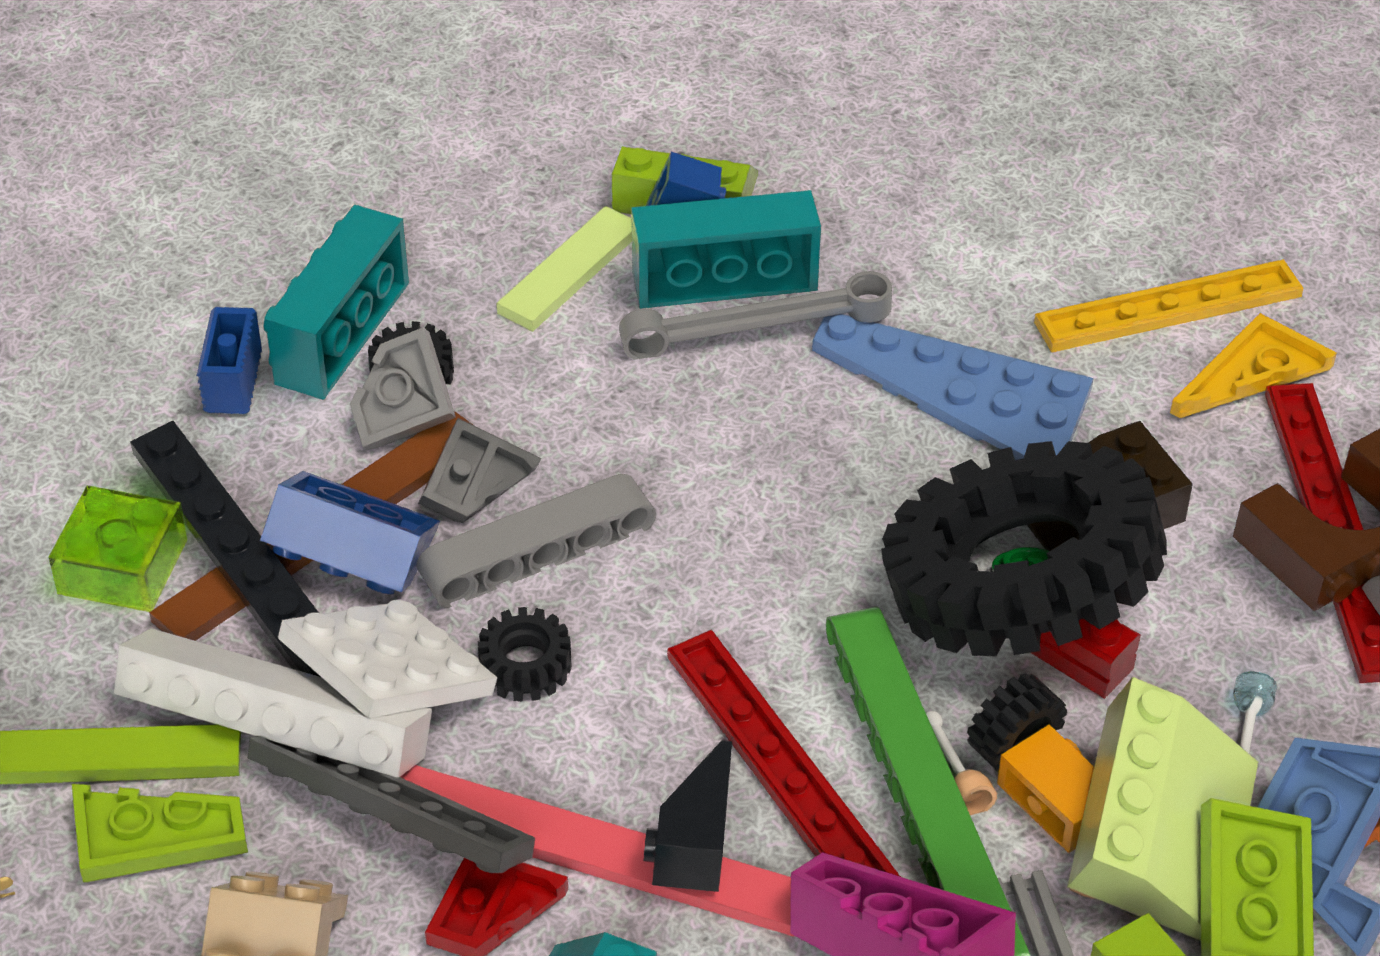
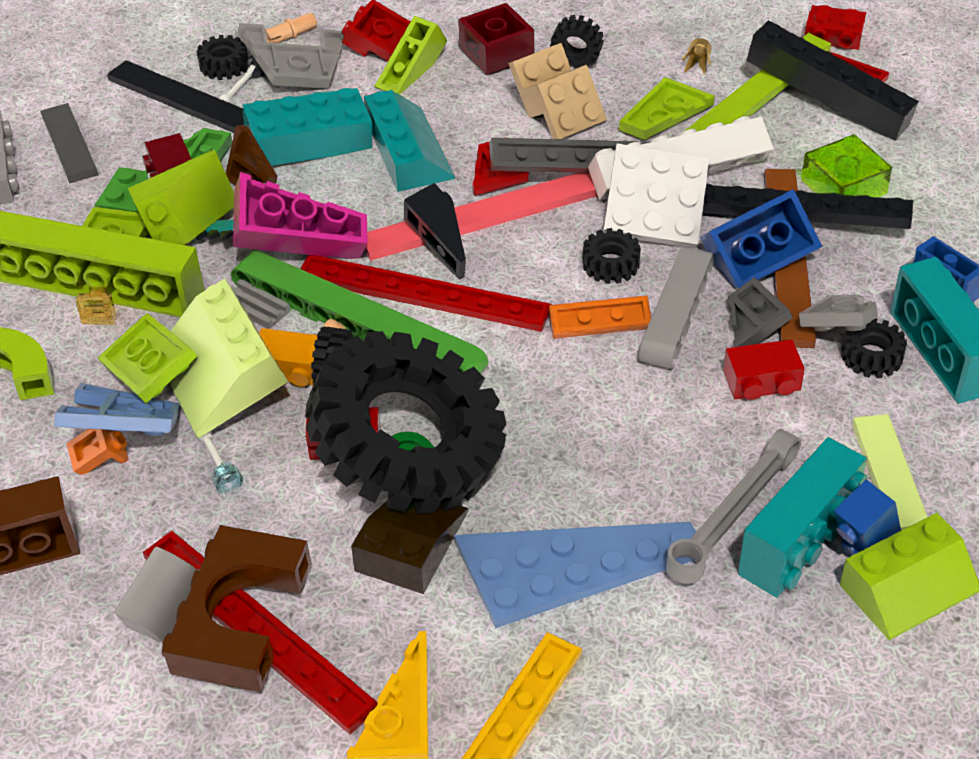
camera: 140 degrees right, 0 degrees up
(552, 411) = (763, 369): none -> red brick
(635, 593) = (599, 316): none -> orange tile

